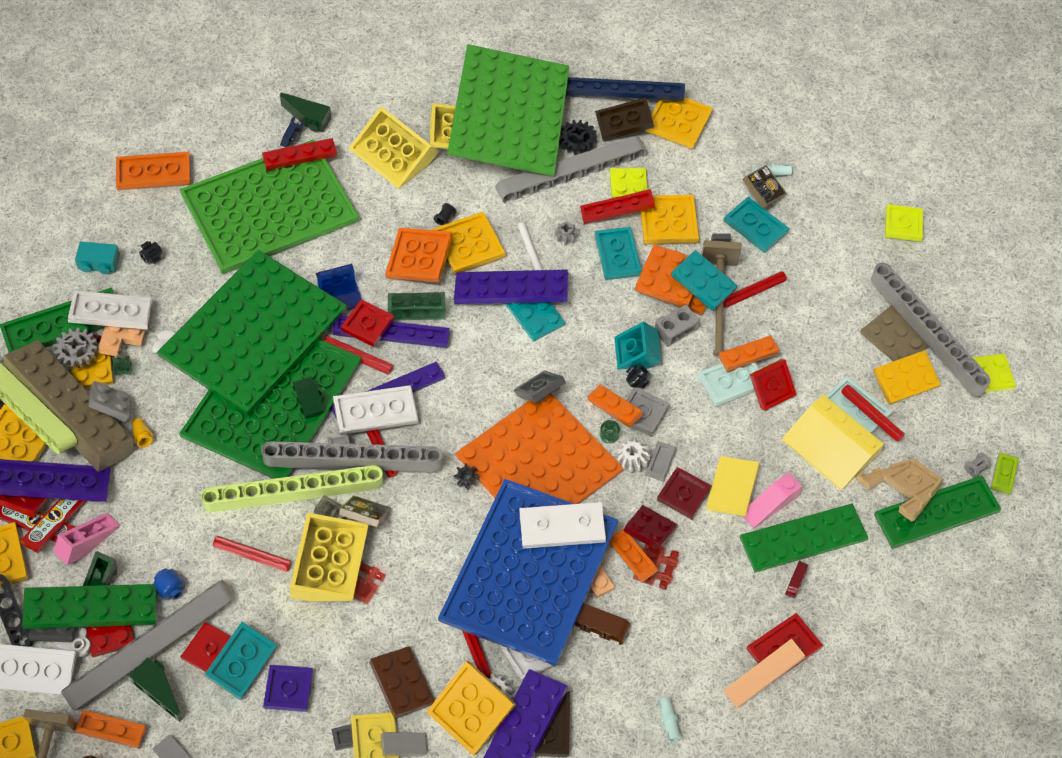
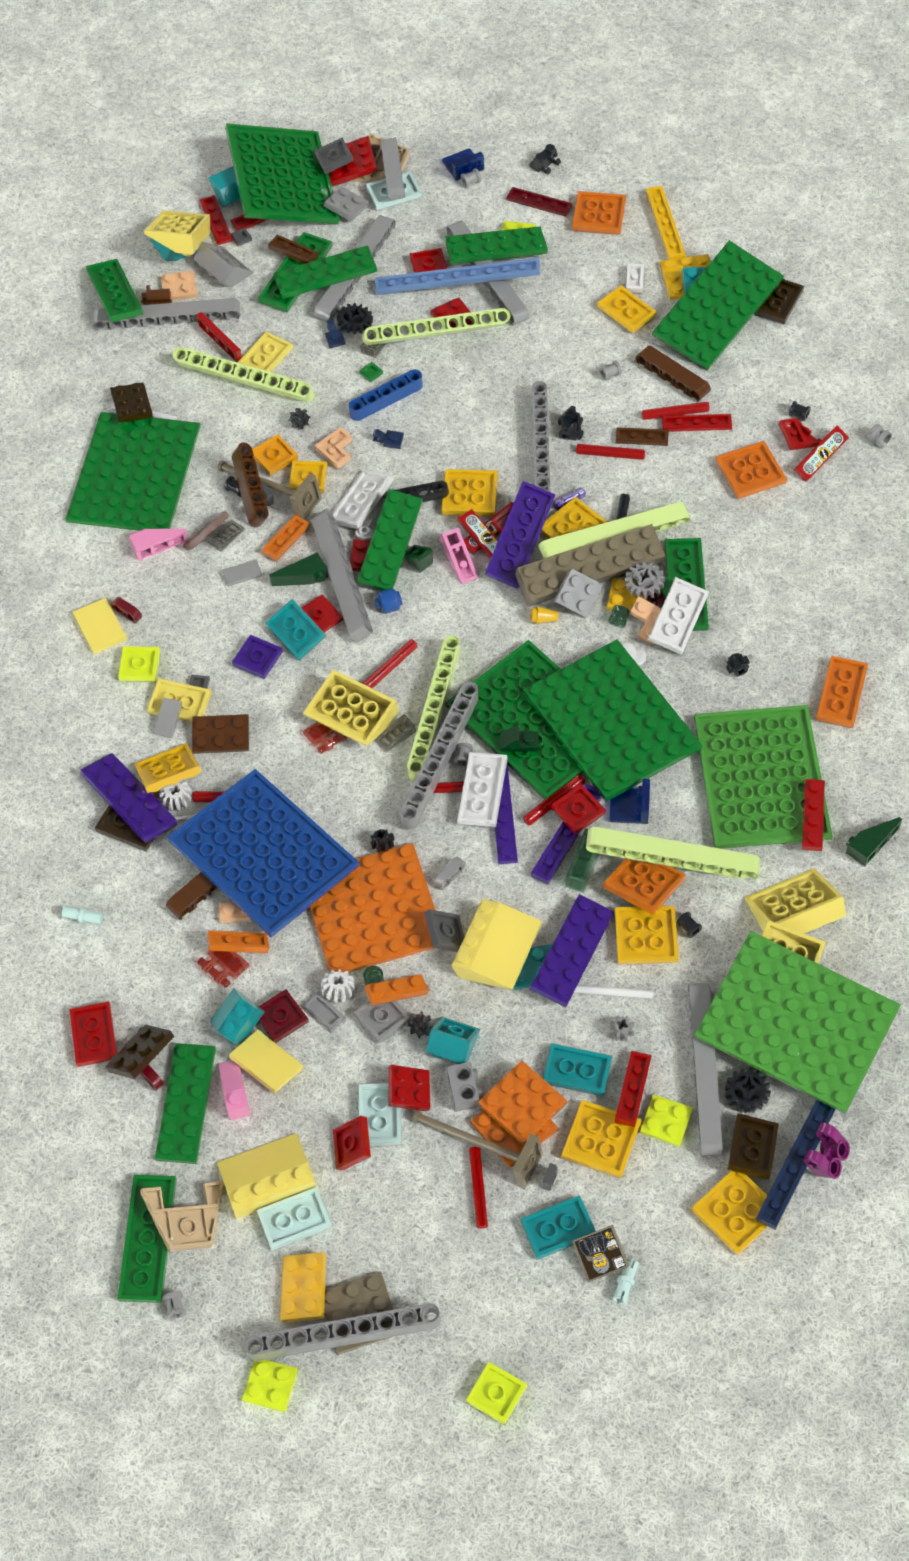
camera: 120 degrees right, 0 degrees up
(97, 257) = (748, 623): teal brick -> none
(289, 135) = (846, 816): dark blue plate -> none
(365, 511) = (384, 750): tile -> none
(386, 239) = (672, 853): none -> yellowish green beam
(474, 409) = (450, 872): none -> light grey beam
(534, 343) = (496, 945): none -> light yellow slope
(562, 525) = (286, 886): white plate -> none
(607, 70) = (833, 1150): none -> magenta piece
(650, 527) = (258, 970): dark red plate -> none
(700, 363) = (409, 1088): none -> red plate
(704, 280) = (497, 1124): teal plate -> none
(708, 523) = (236, 1017): none -> teal slope
(749, 353) = (397, 1137): orange plate -> none
(764, 673) = (76, 1001): light nougat tile -> none
(784, 589) = (139, 1051): none -> dark brown plate
(873, 413) = (275, 1223): red axle -> none
(1004, 473) = (153, 1328): lime plate -> none

